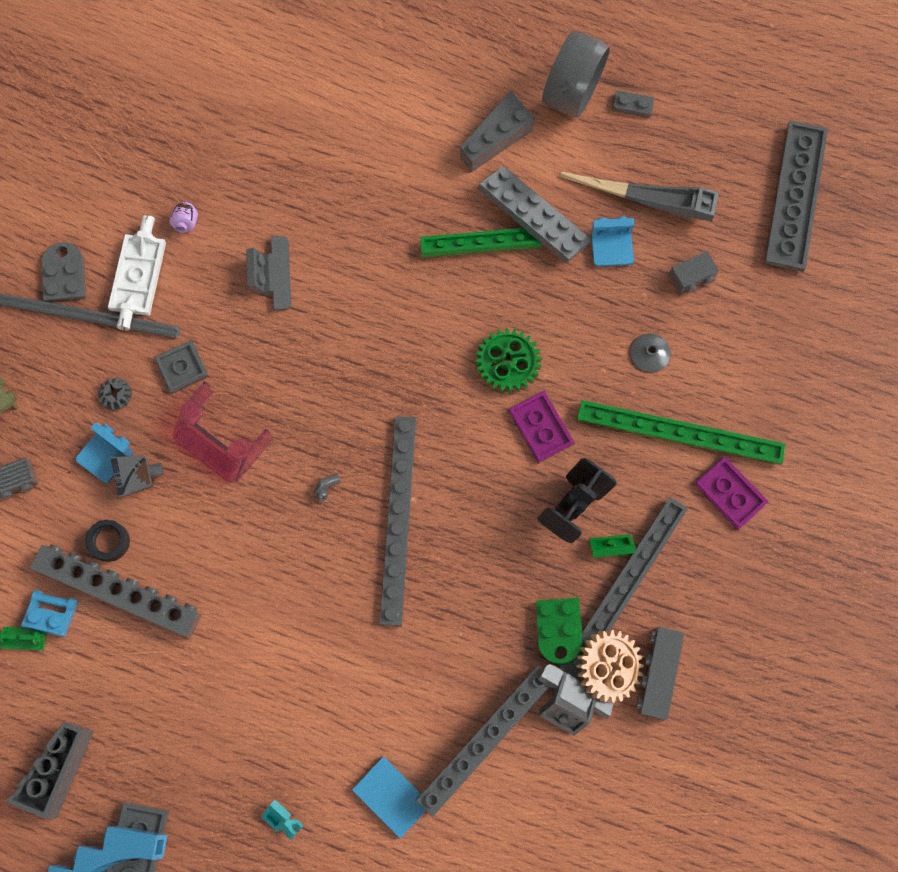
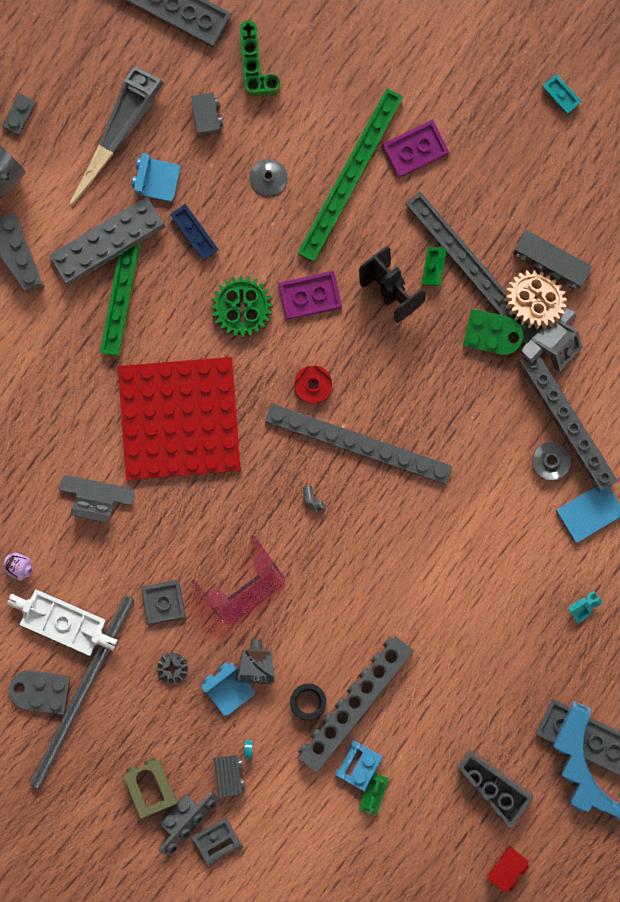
camera: 70 degrees left, 10 degrees up
(44, 492) = (248, 749): none -> teal tile
(375, 332) = (179, 418): none -> red plate
(436, 747) = (561, 460): none -> dark grey dish
(442, 444) = (313, 373): none -> red plate
(569, 294) = (194, 232): none -> dark blue plate
(767, 303) = (253, 58): none -> green beam
(845, 633) = (561, 94): none -> teal plate

